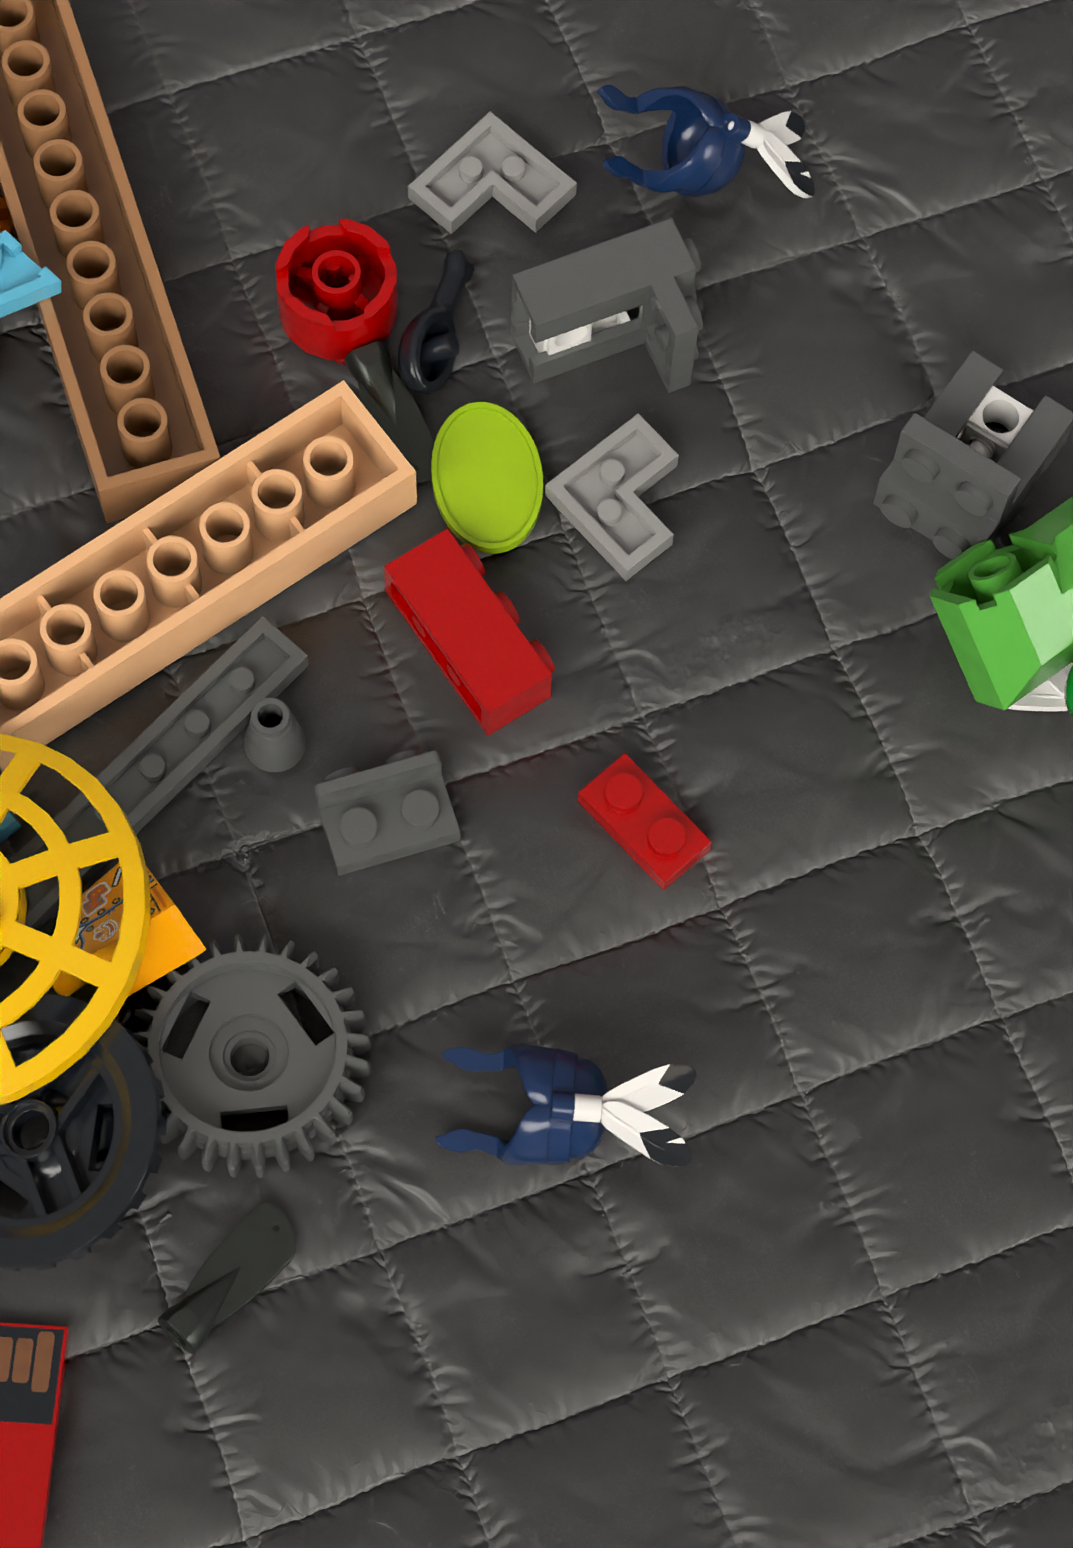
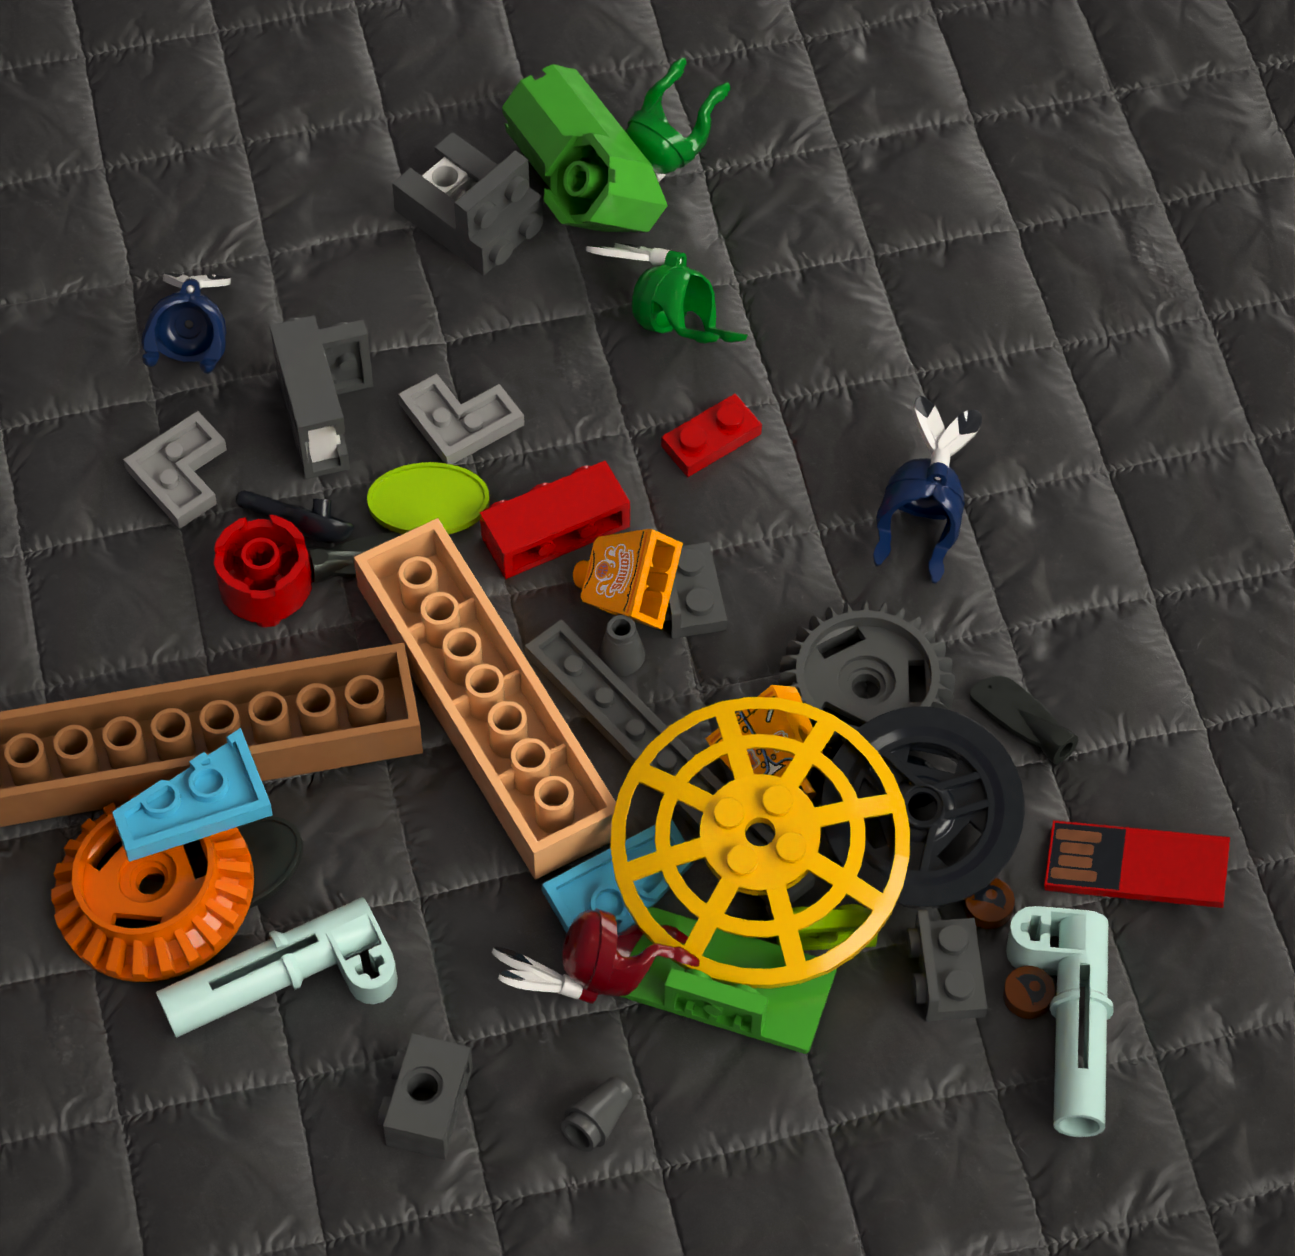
camera: 80 degrees left, 10 degrees down
(360, 727) = (630, 575): none -> light orange torso
(855, 723) = (670, 291): none -> green hair

